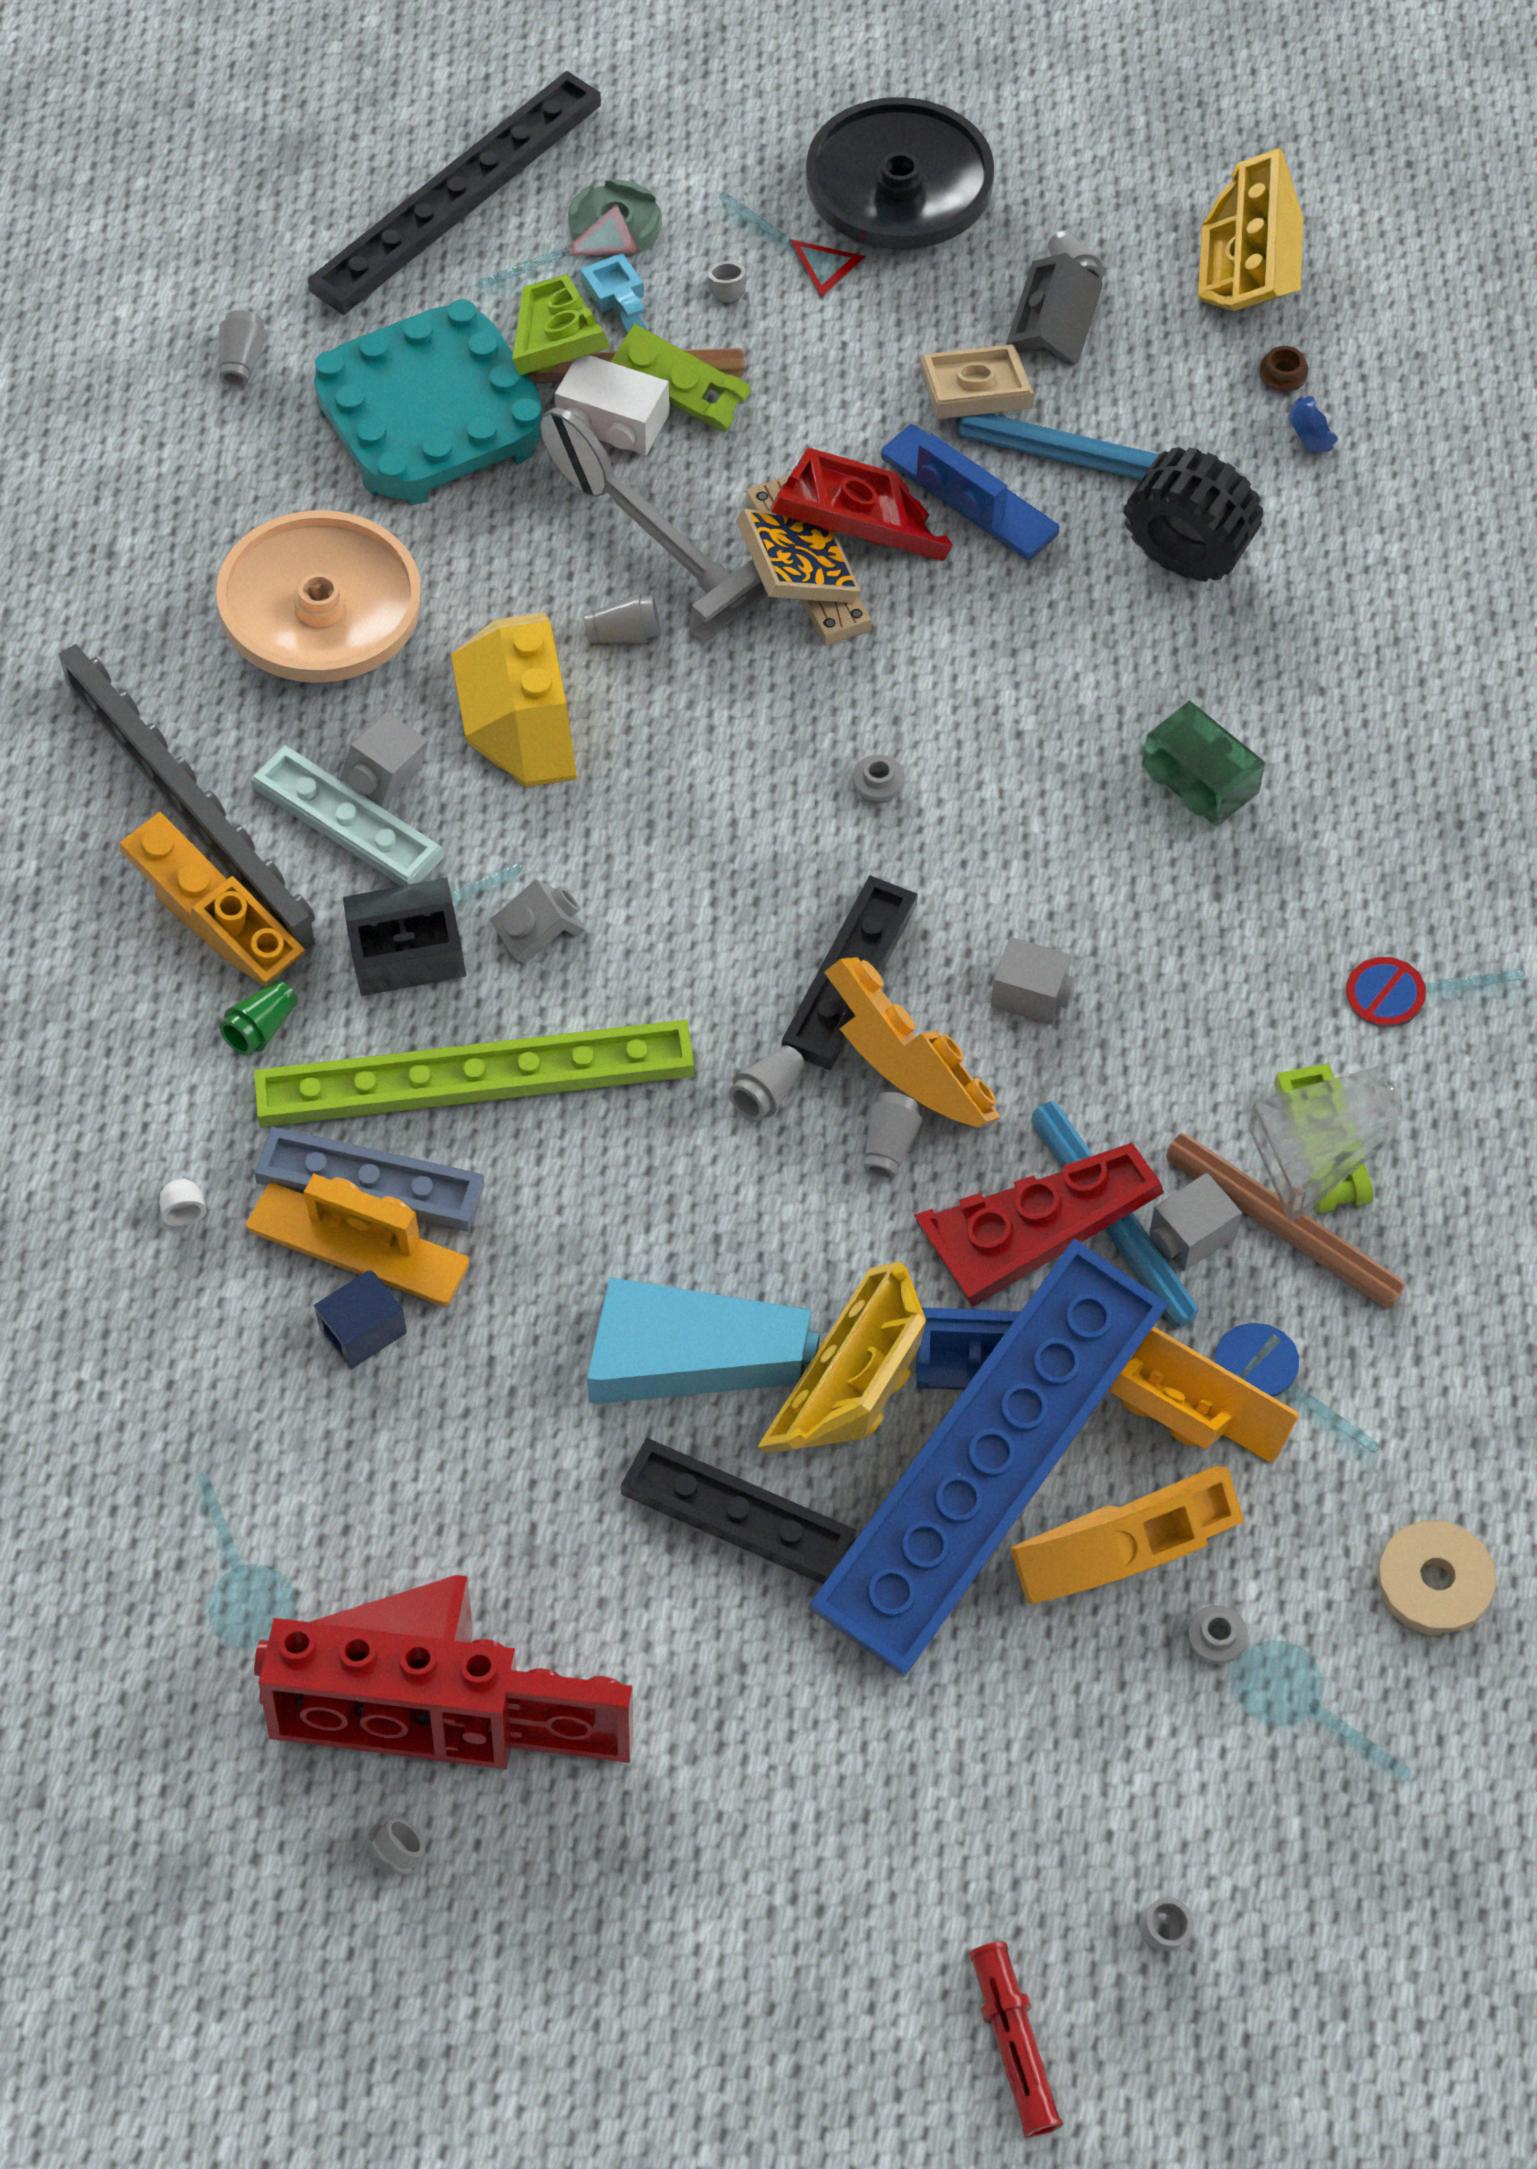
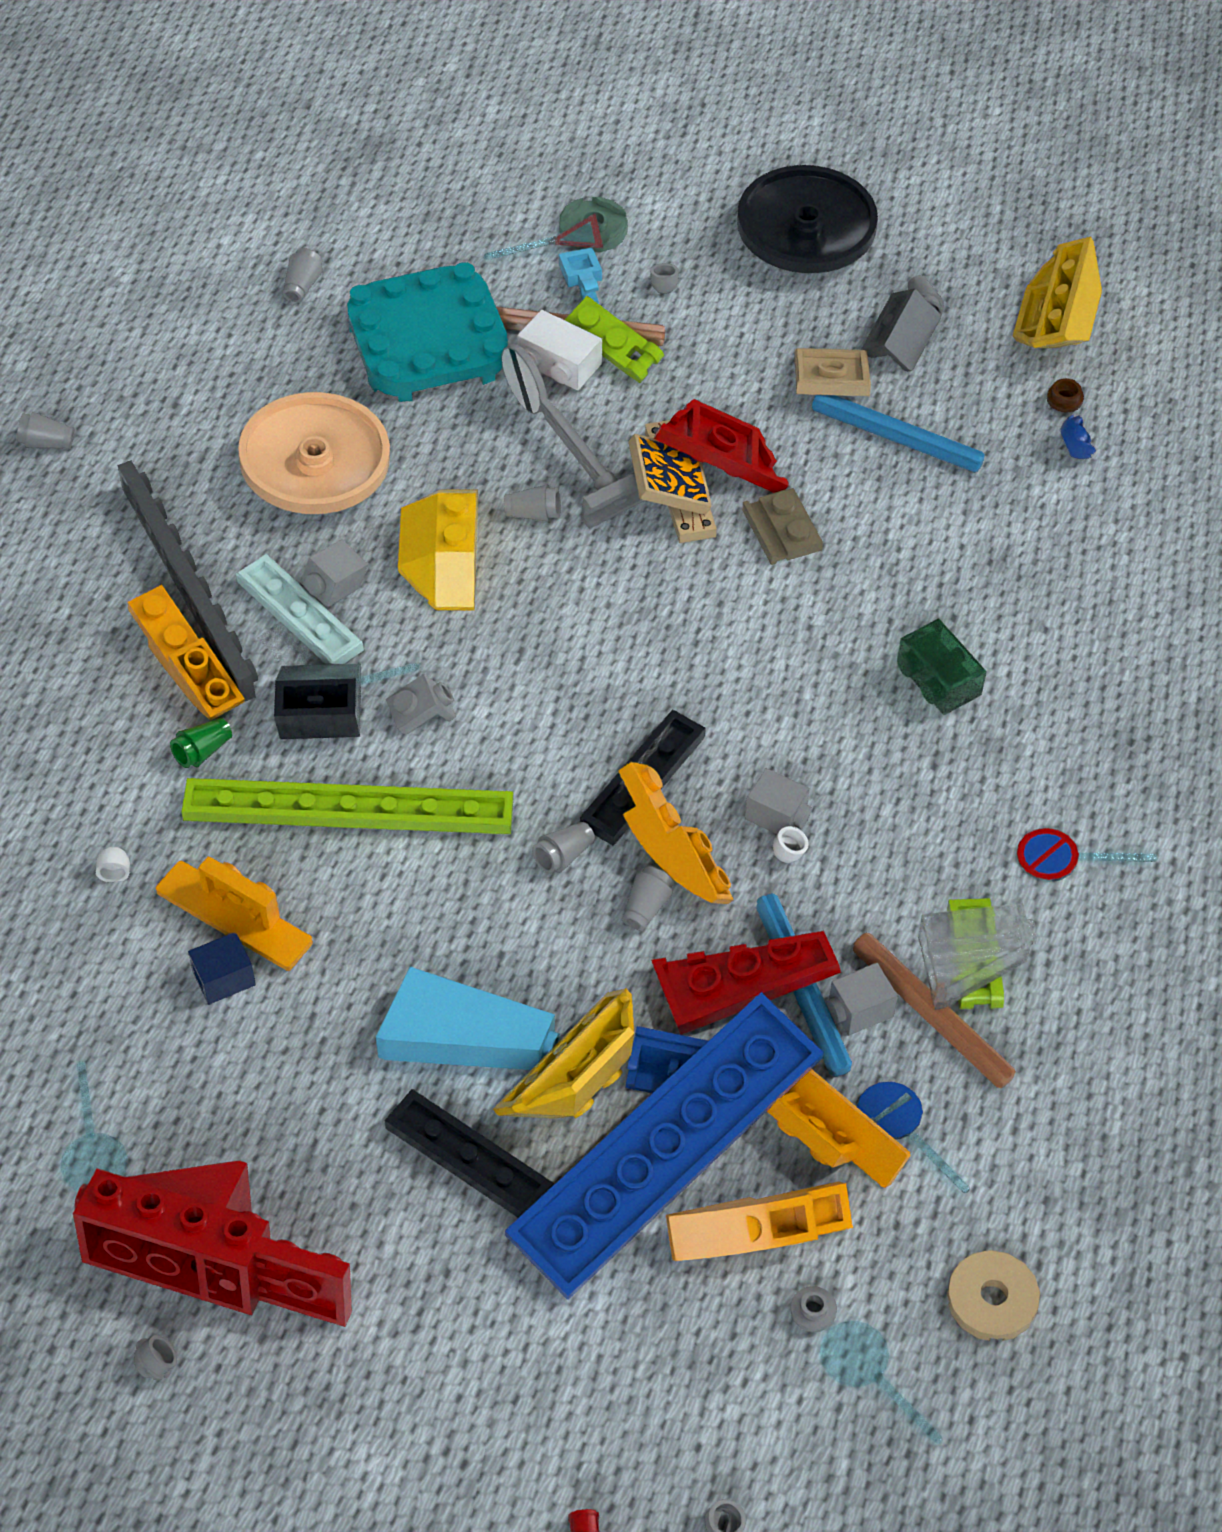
camera: 10 degrees right, 5 degrees down
(432, 1190) = (293, 883): sand blue plate -> none
(454, 193) = (480, 190): black plate -> none
(554, 327) = (527, 290): lime wing -> none
(822, 264) = (737, 276): clear light blue piece -> none
(878, 789) = (696, 649): light grey plate -> none
(955, 602) = (782, 526): none -> dark tan plate
(970, 491) = (811, 449): blue bracket -> none
(1057, 1025) = (786, 841): none -> white hinge
(1193, 514) = (970, 486): black tyre -> none

